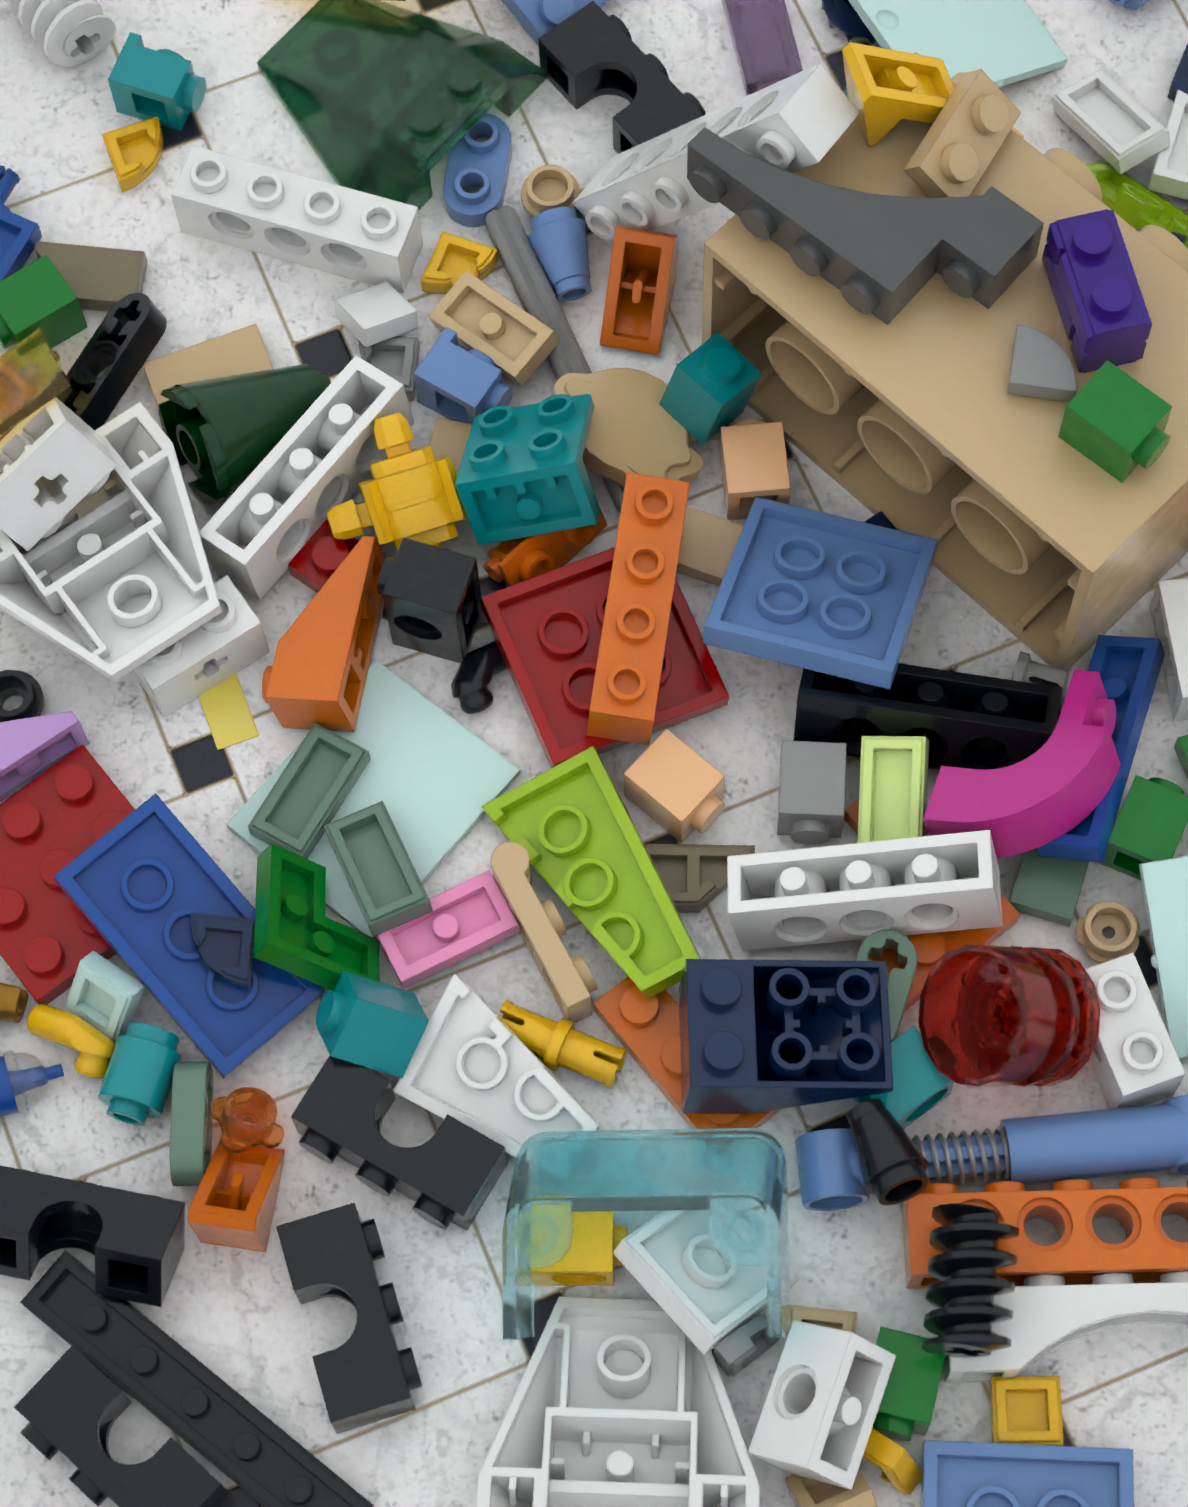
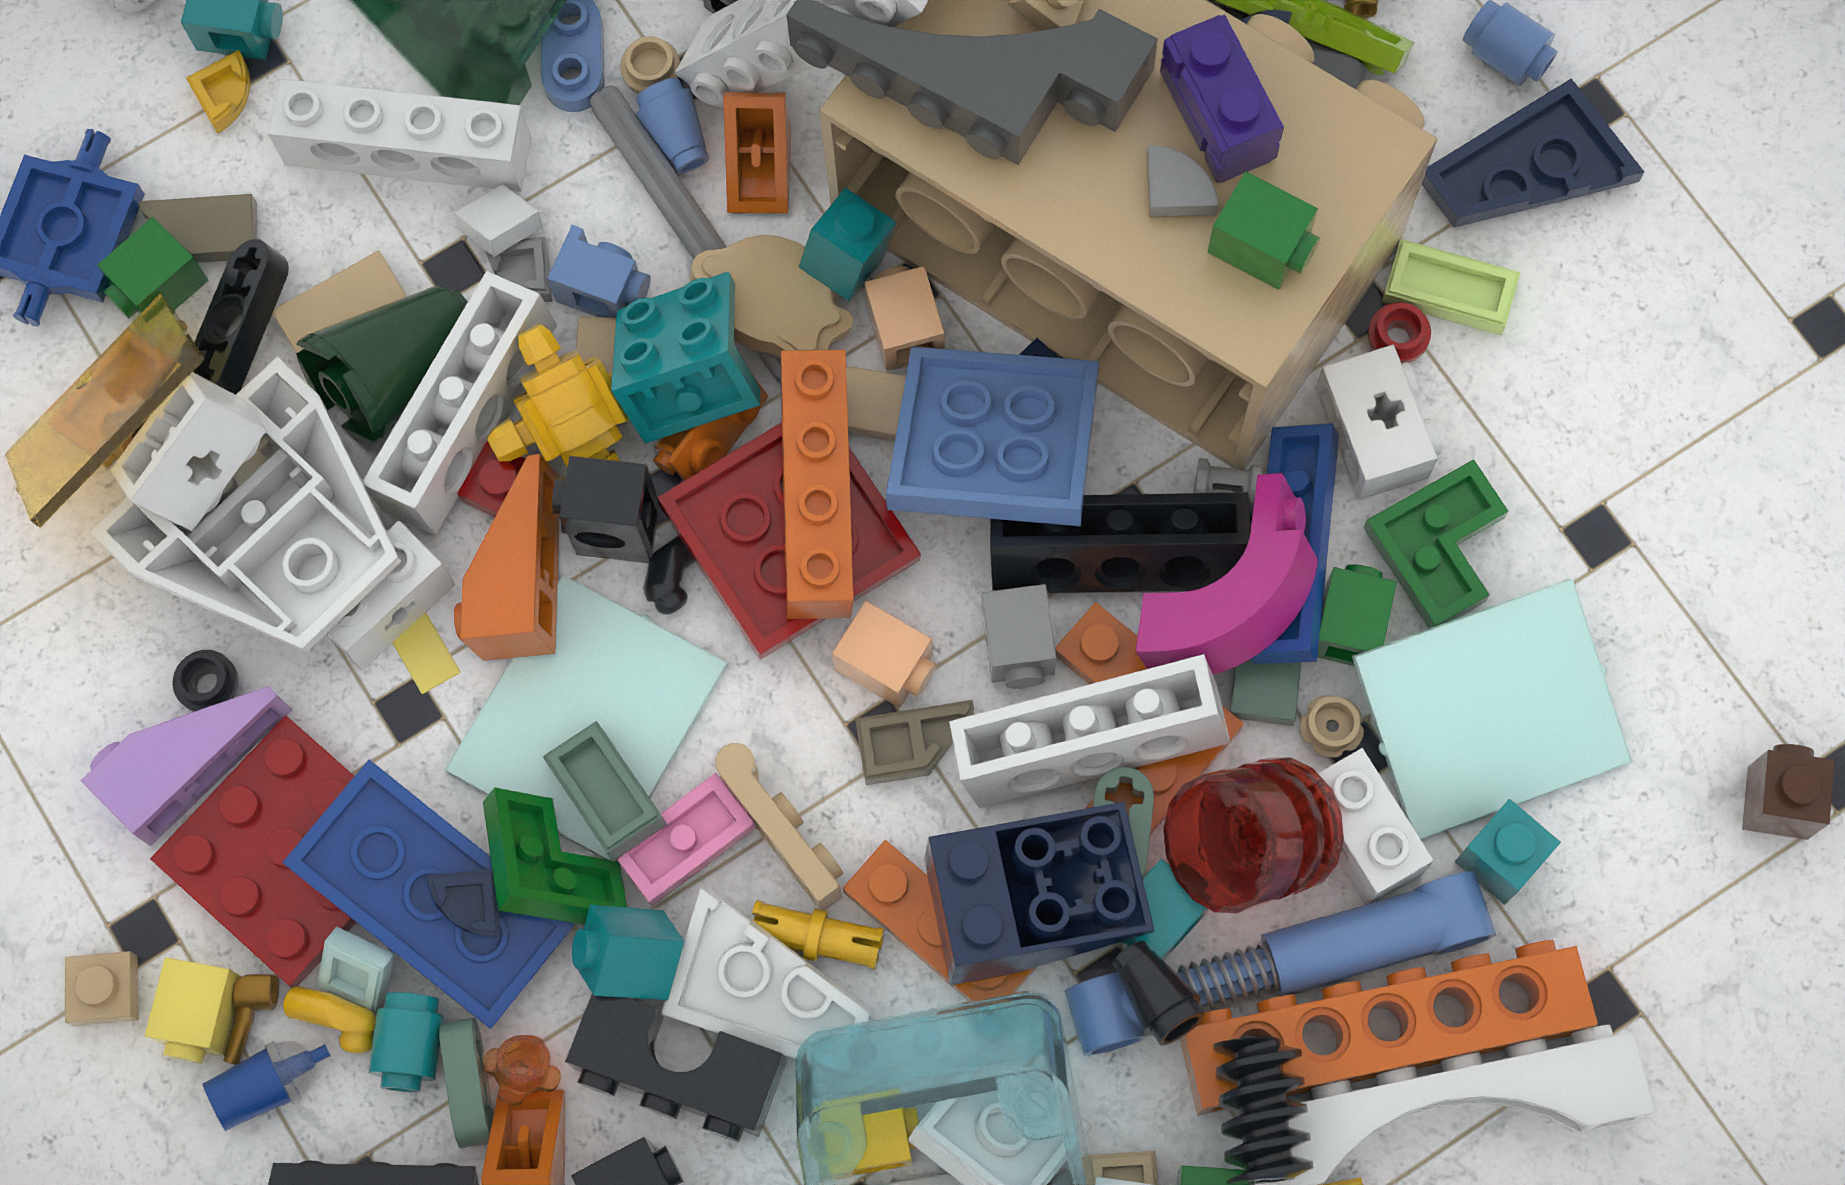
camera: 10 degrees left, 5 degrees up
(309, 791) = (521, 724): sand green tile -> none
(452, 258) = (570, 154): yellow tile -> none
(495, 327) = (619, 215): tan plate -> none
(599, 866) = (824, 751): lime wing -> none
(892, 787) = (1099, 625): yellowish green tile -> none

